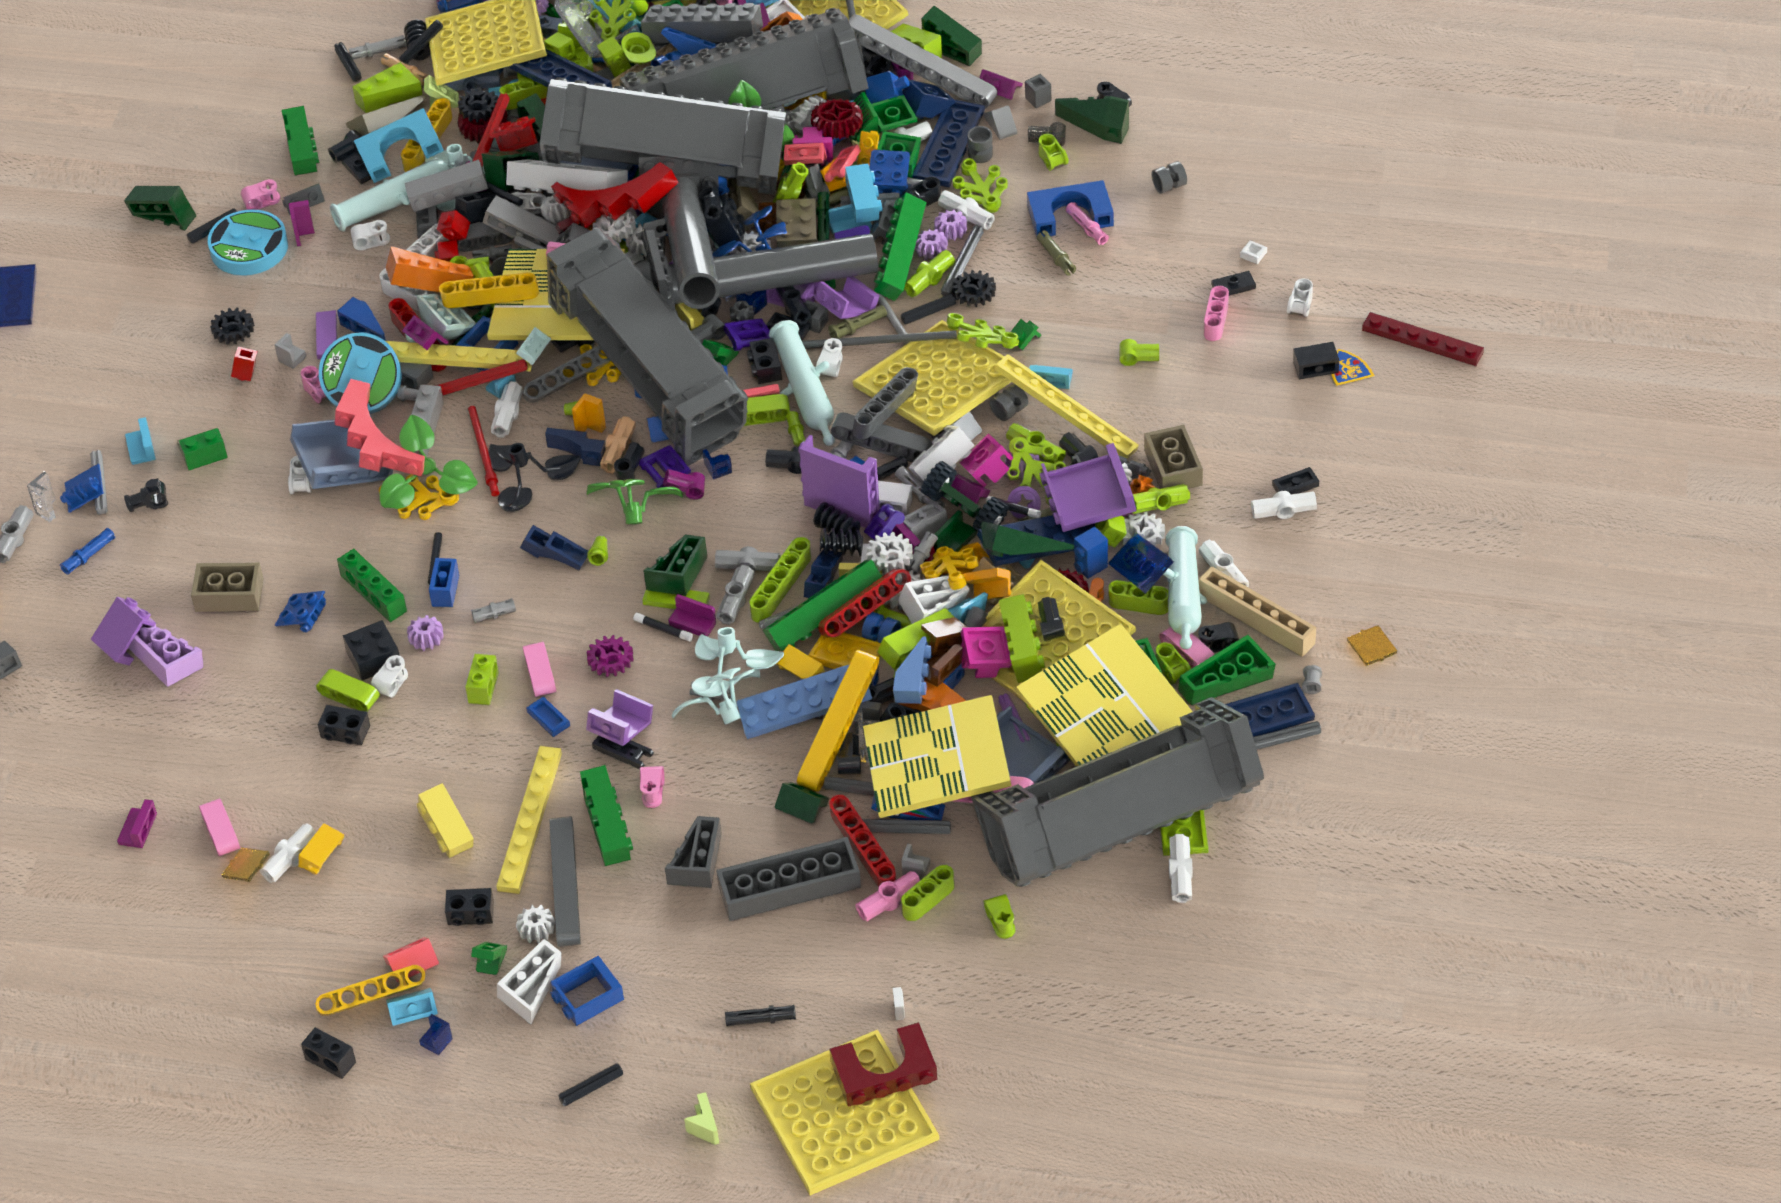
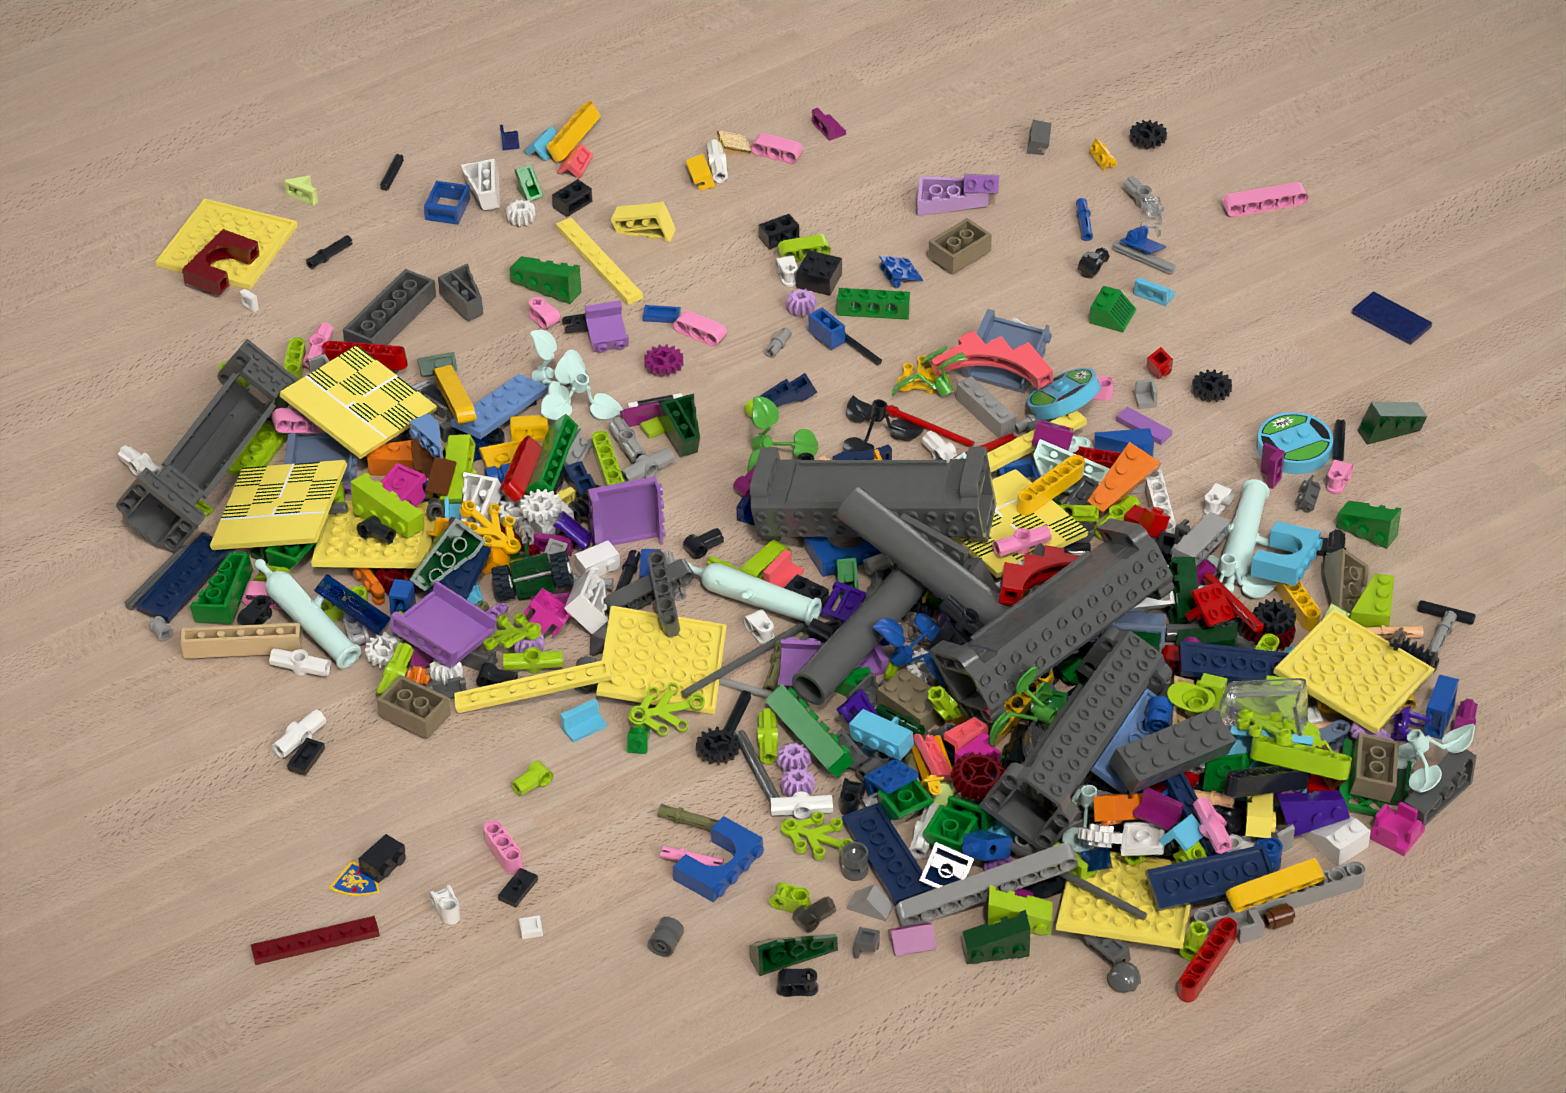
camera: 135 degrees right, 5 degrees down
(328, 1053) = (558, 96): black brick -> none
(482, 679) = (726, 299): lime brick -> none
(565, 881) = (529, 239): dark grey beam -> none
(685, 42) = (1156, 723): blue slope -> none
(1020, 509) = (494, 599): black bar -> none
(1372, 645) = (141, 684): clear yellow piece -> none

